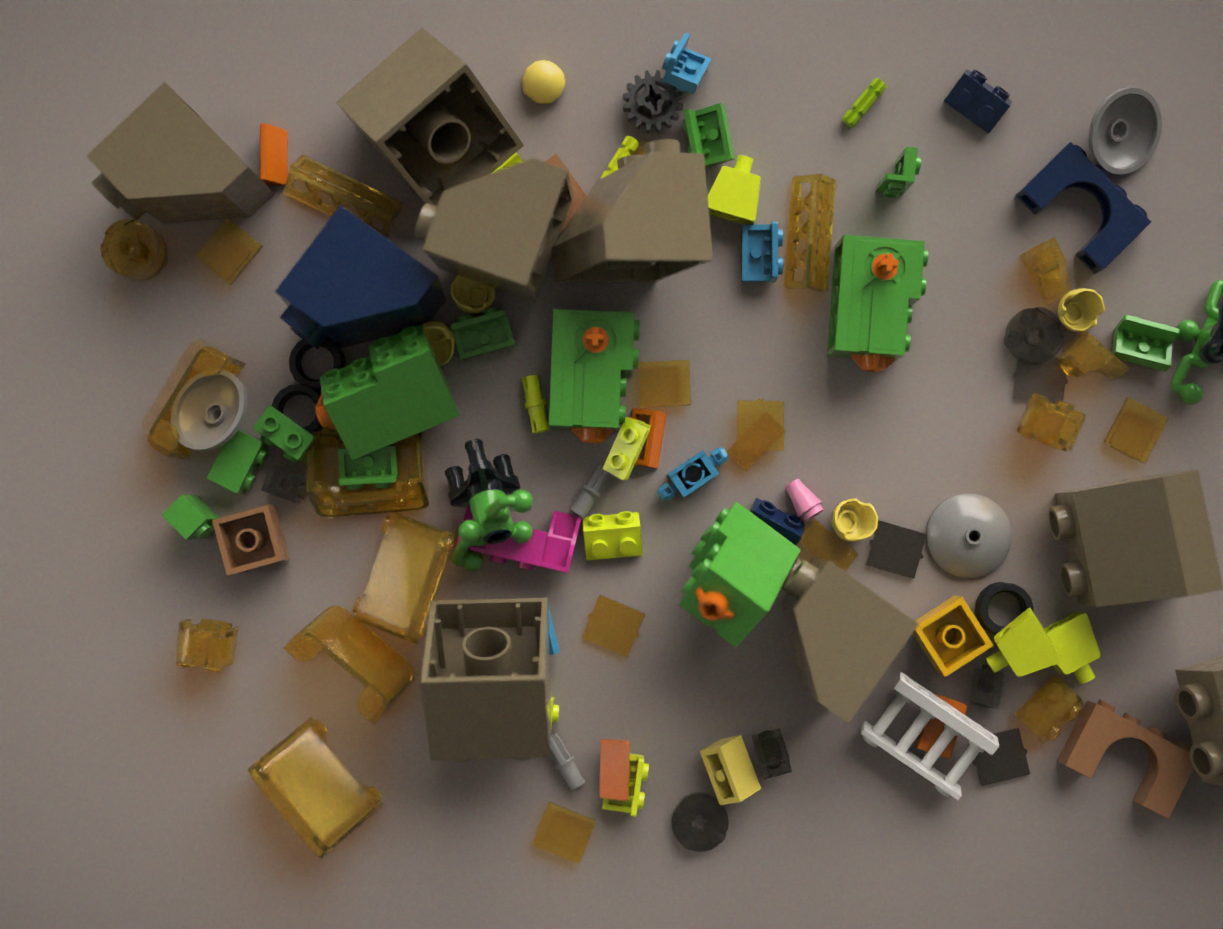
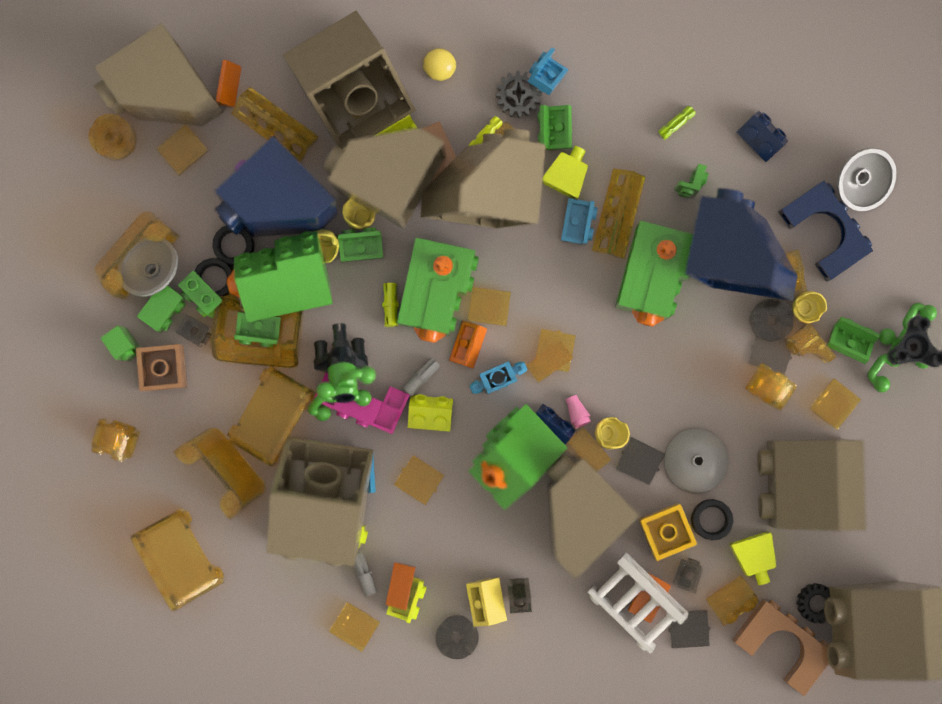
camera: 10 degrees right, 0 degrees up
(626, 448) = (452, 349): neon yellow bracket -> none
(978, 250) = (738, 249): none -> dark blue slope
(1024, 646) = (719, 549): neon yellow torso -> none
(1143, 693) = (804, 599): none -> black tyre

